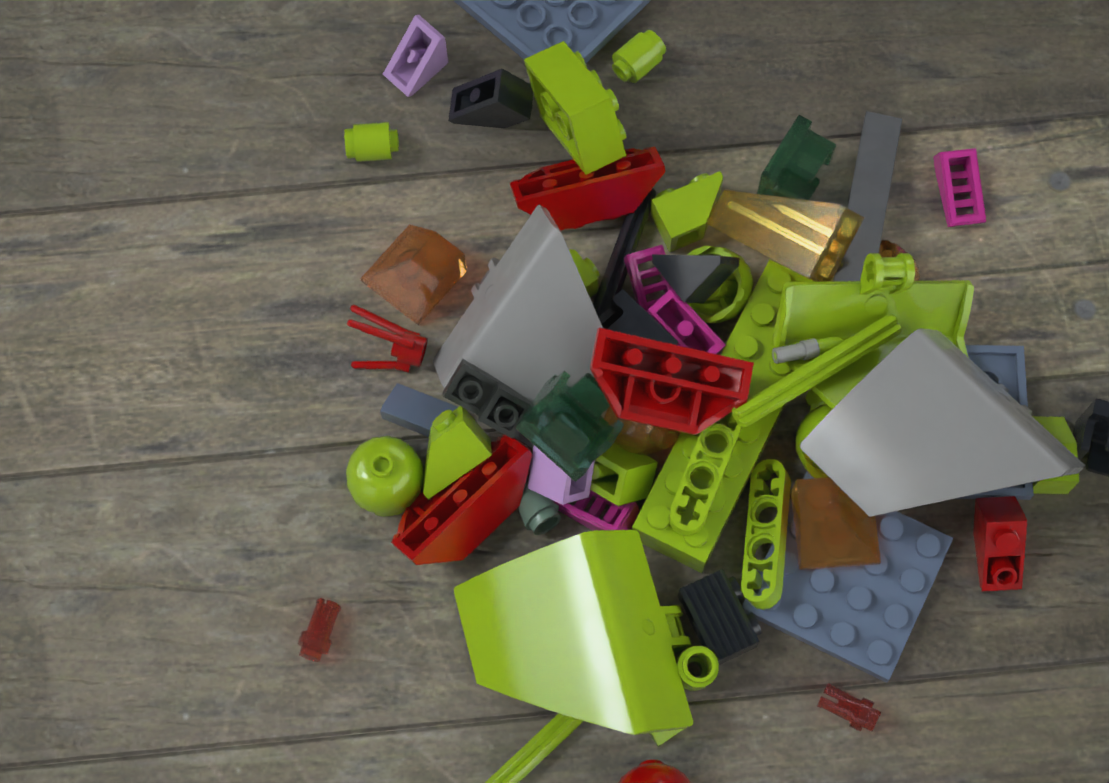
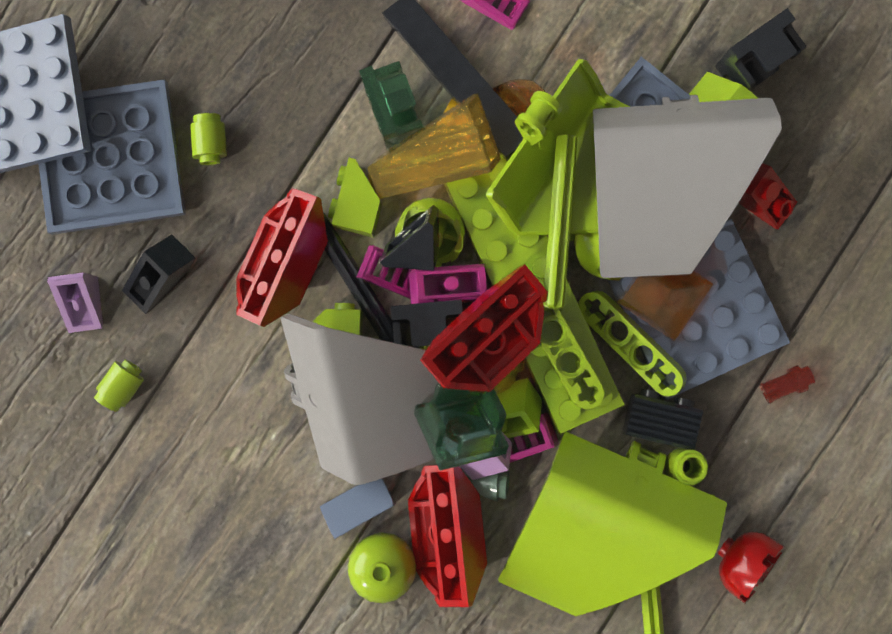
camera: 50 degrees left, 15 degrees up
(407, 345) = (300, 481): red plant -> none
(416, 272) = (245, 431): clear orange slope -> none
(453, 449) = (407, 511): lime slope -> none
(486, 397) = (395, 460): pearl dark grey slope -> none
(576, 107) = (218, 221): lime brick -> none
(804, 349) = (537, 214): light grey piece -> none

